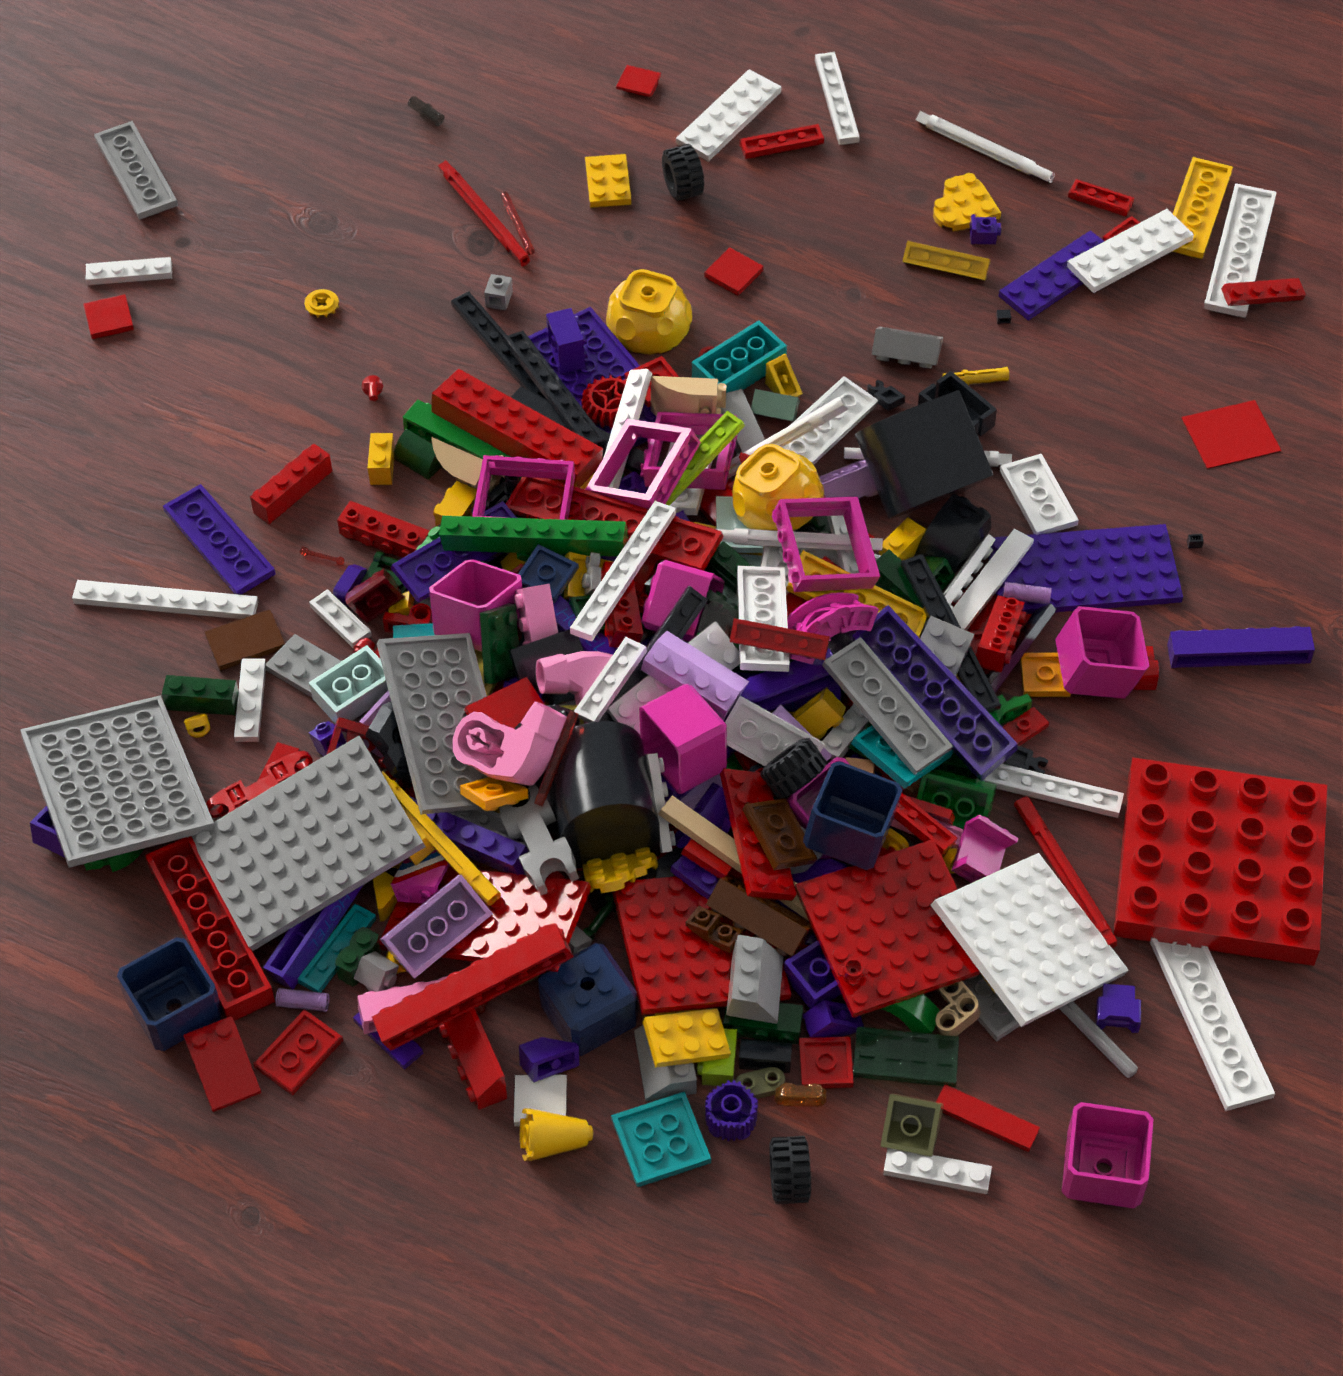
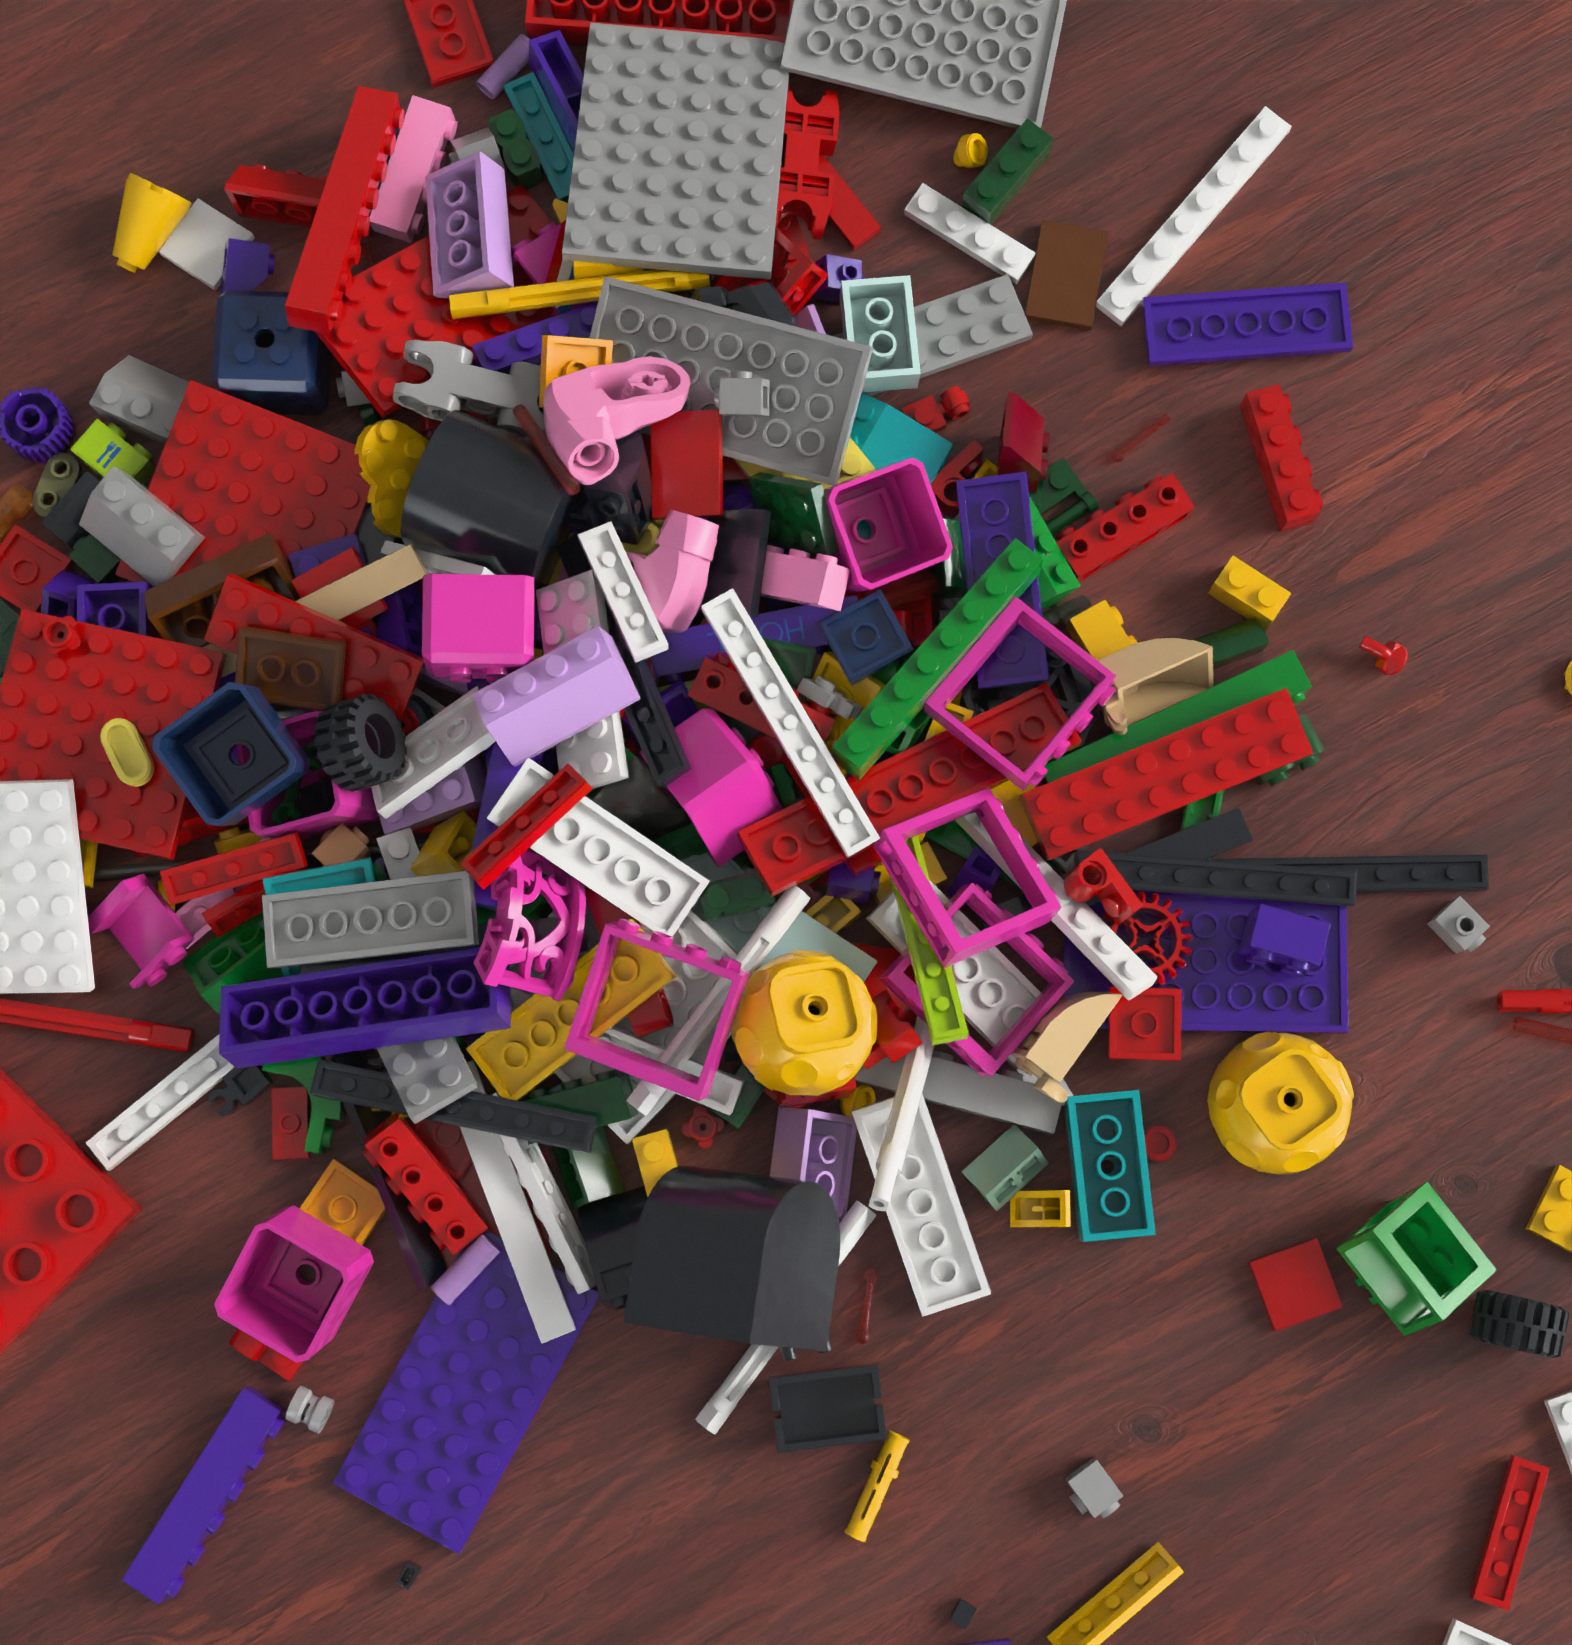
camera: 125 degrees right, 25 degrees up
(340, 618) = (1044, 395): white plate -> none
(351, 577) = (1069, 442): dark purple piece -> none
(450, 692) = (742, 395): none -> light grey brick
(597, 420) = (1105, 883): none -> red plate
(661, 1139) = (65, 336): teal plate -> none
(684, 231) = (1416, 1259): none -> green piece
(686, 1037) = (137, 417): yellow plate -> none
(711, 929) = (240, 528): reddish brown slope -> none
(888, 397) = (920, 1334): black plate -> none
(892, 891) = (127, 752): none -> light yellow tile
(900, 294) = (1093, 1490): none -> light grey brick
(907, 346) = (994, 1430): light grey slope -> none
(1038, 495) = (620, 1417): white plate -> none
(1157, 626) = (309, 1409): none -> light grey wheel

